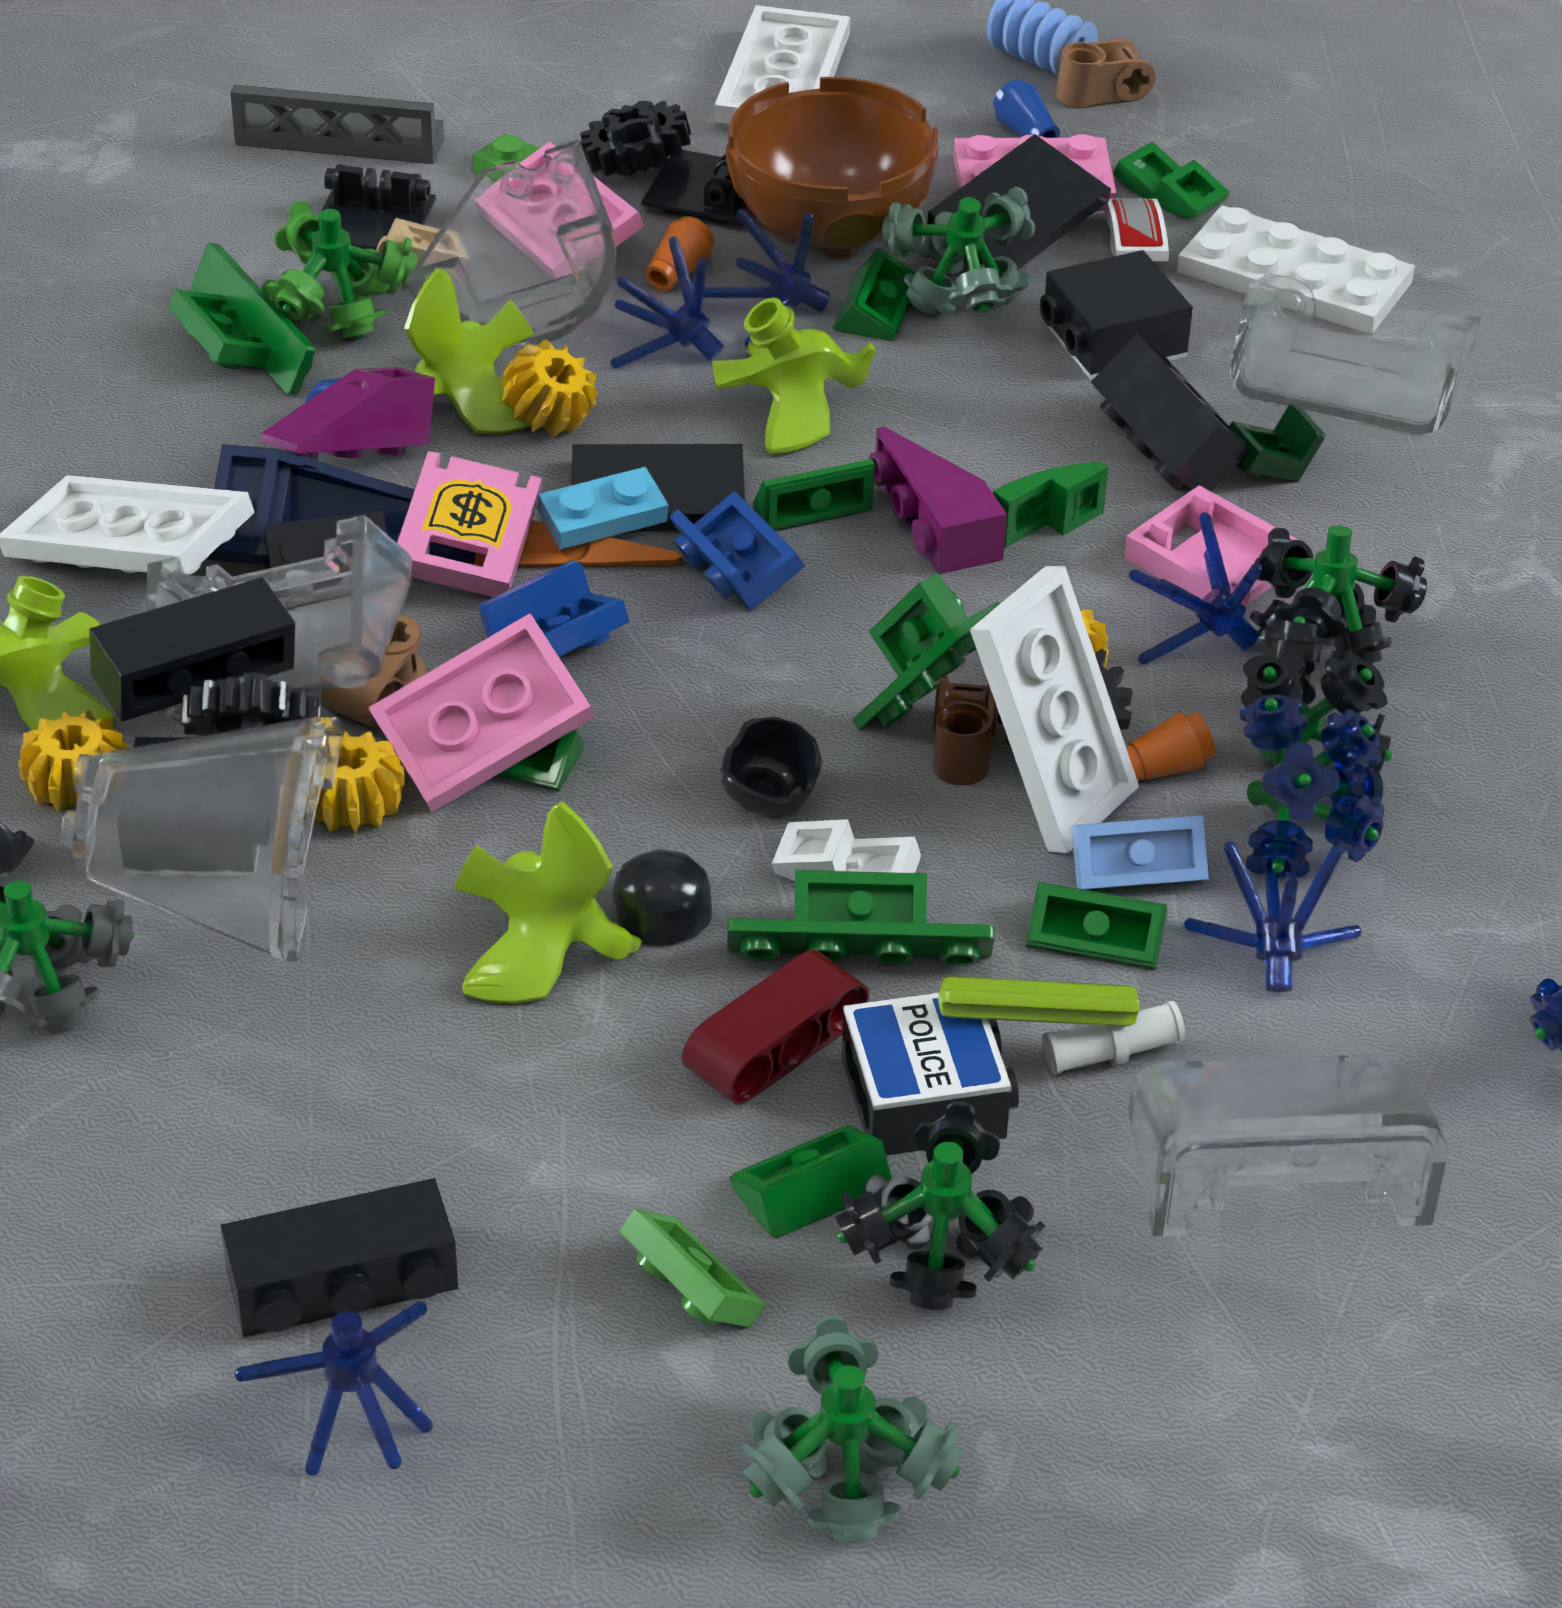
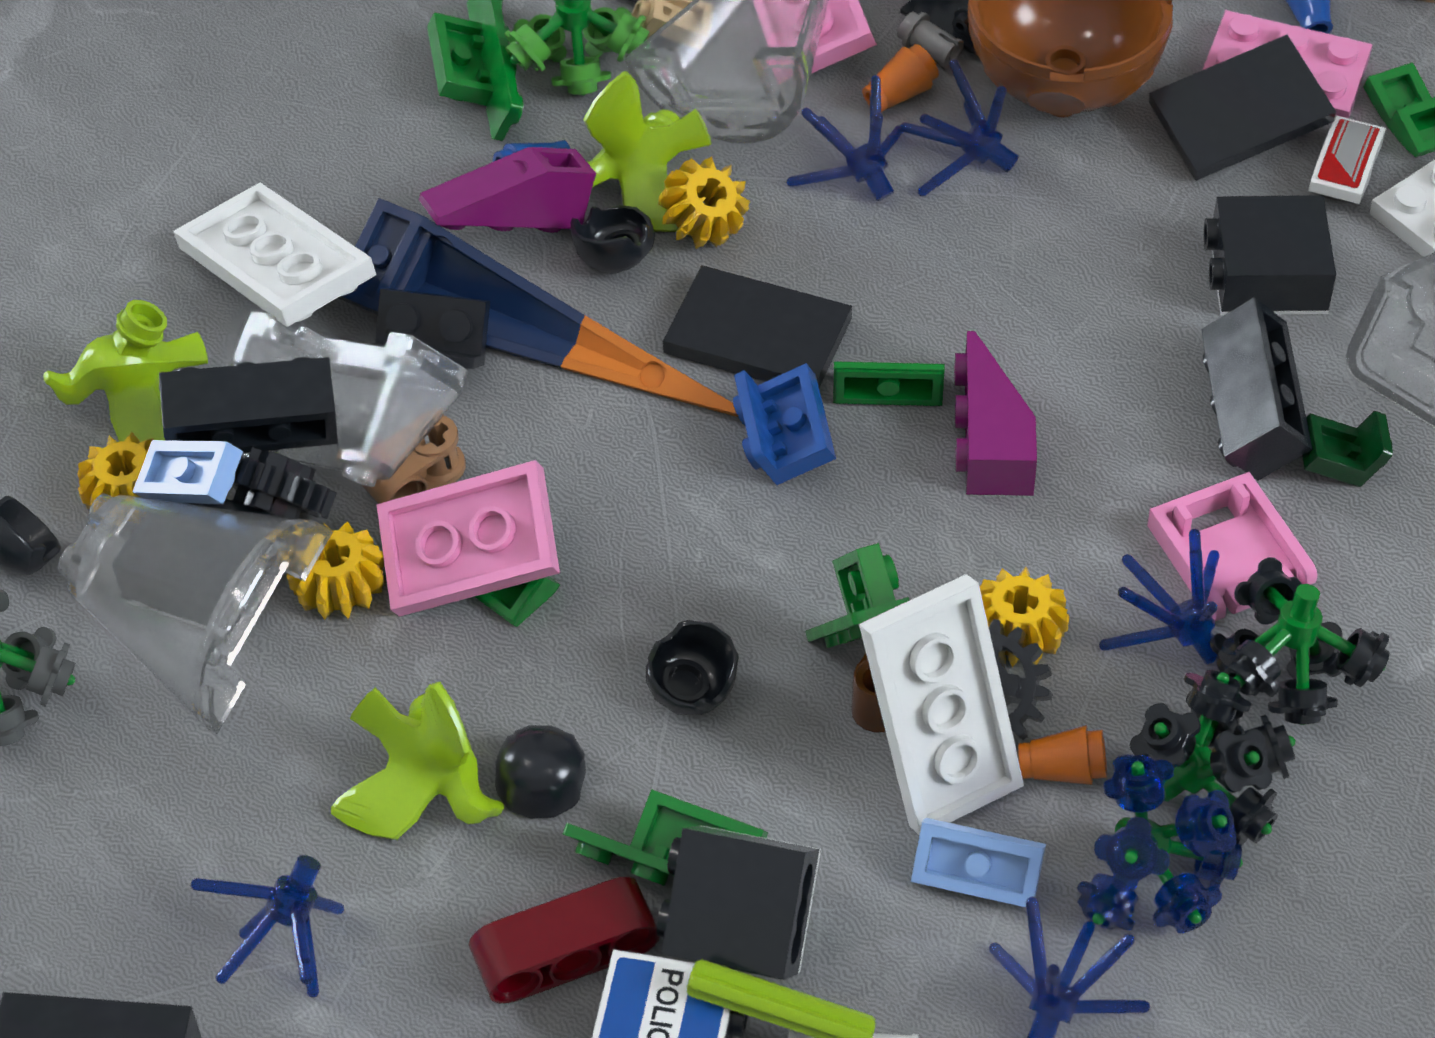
camera: 25 degrees right, 10 degrees up
(169, 707) = (188, 471): none -> light blue plate
(470, 510) = (565, 319): bright pink container -> none
(473, 435) = (613, 238): none -> black hair
(489, 1052) = (288, 904): none -> clear blue plant
(561, 607) = (587, 449): blue bracket -> none
(602, 507) = (687, 345): medium azure plate -> none
(672, 209) = (937, 42): none -> light grey pin
(794, 370) = (929, 241): lime animal -> none
(832, 847) = (712, 778): white slope -> none
(876, 298) = (1064, 173): green slope -> none
(946, 920) = (738, 901): none -> black piece
(952, 240) = (1152, 134): sand green plant -> none
(1054, 497) = (1111, 448): green slope -> none
(1097, 925) = (905, 925): green slope -> none

